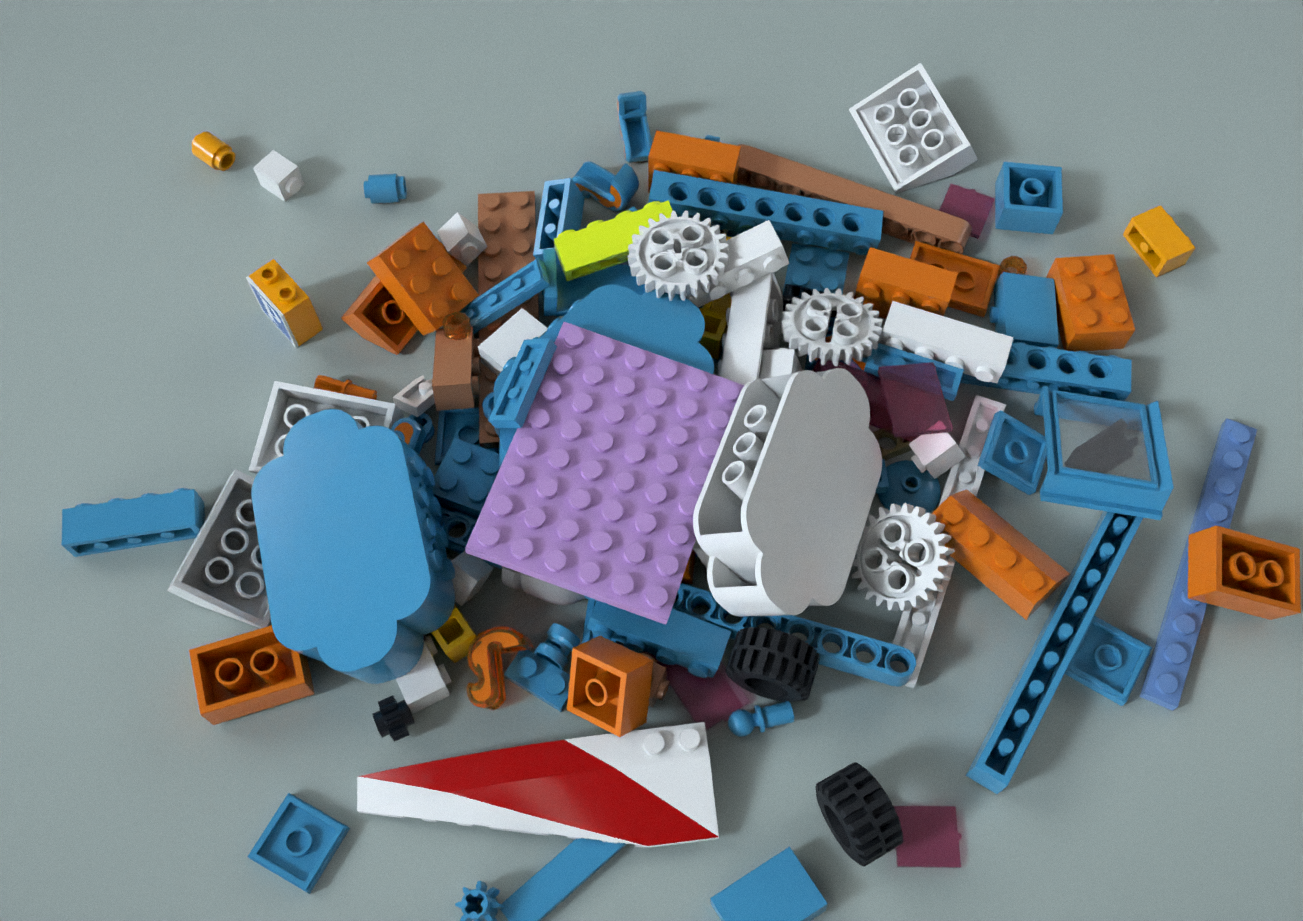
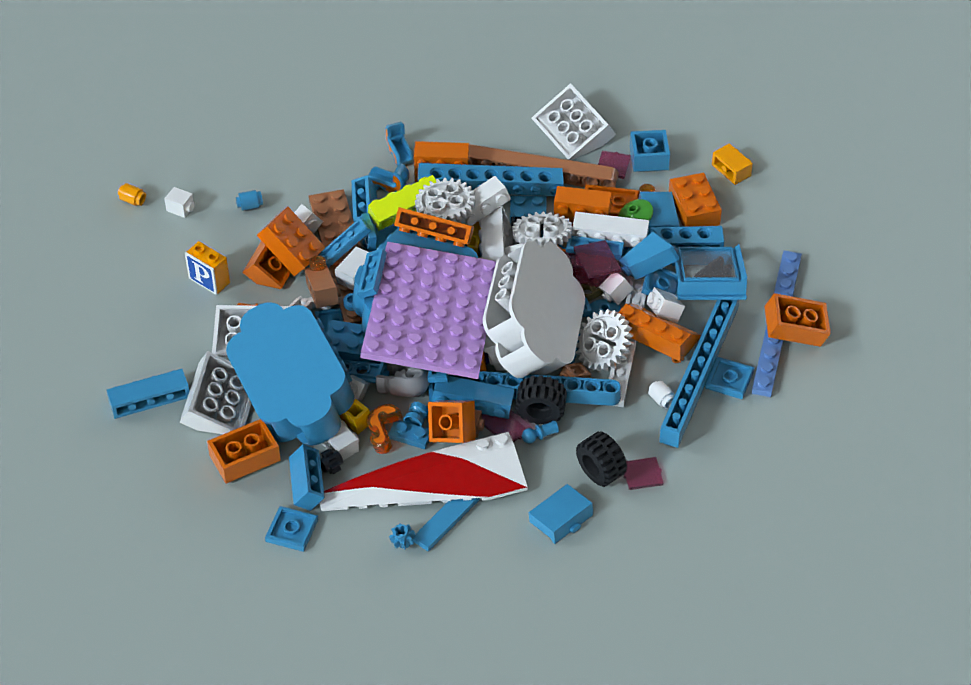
camera: 10 degrees left, 15 degrees down
(342, 748) = (306, 477): none -> dark azure brick
(647, 304) = (434, 226): none -> orange brick
(845, 611) = (575, 370): none -> nougat bracket
(984, 678) = (661, 394): none -> white brick
(1000, 317) = (637, 209): none -> bright green dish
(1002, 405) = (648, 257): none -> dark azure slope
(1016, 502) = (665, 305): none -> white brick

